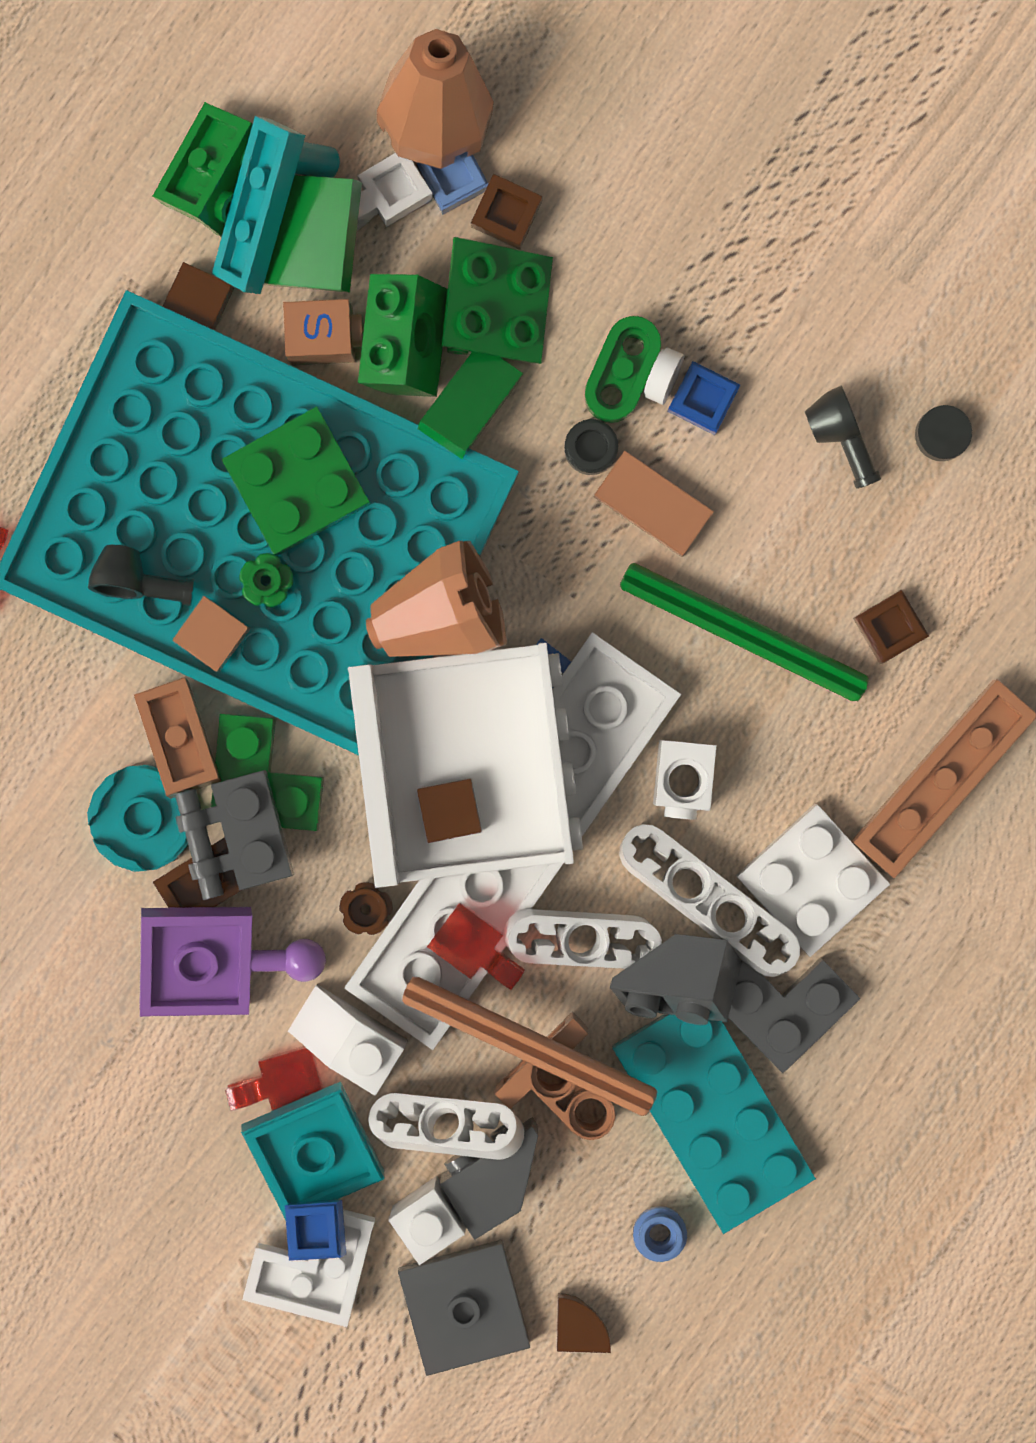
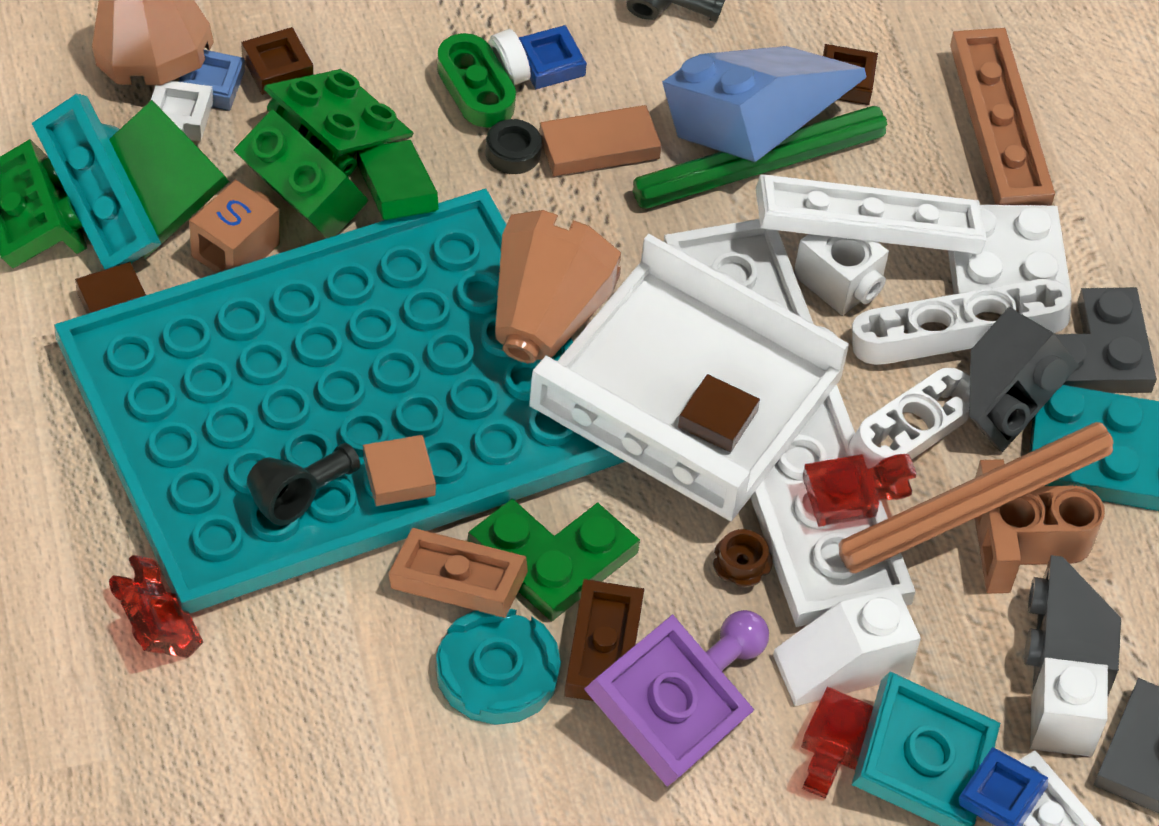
camera: 60 degrees left, 35 degrees down
(250, 830) = (591, 568): dark grey plate -> none
(280, 576) = (396, 411): green plate -> none
(296, 481) = (337, 323): green plate -> none
(463, 1142) = (995, 648): white beam -> none
(729, 773) = (870, 214): none -> white tile
(793, 593) = (753, 96): none -> medium blue slope

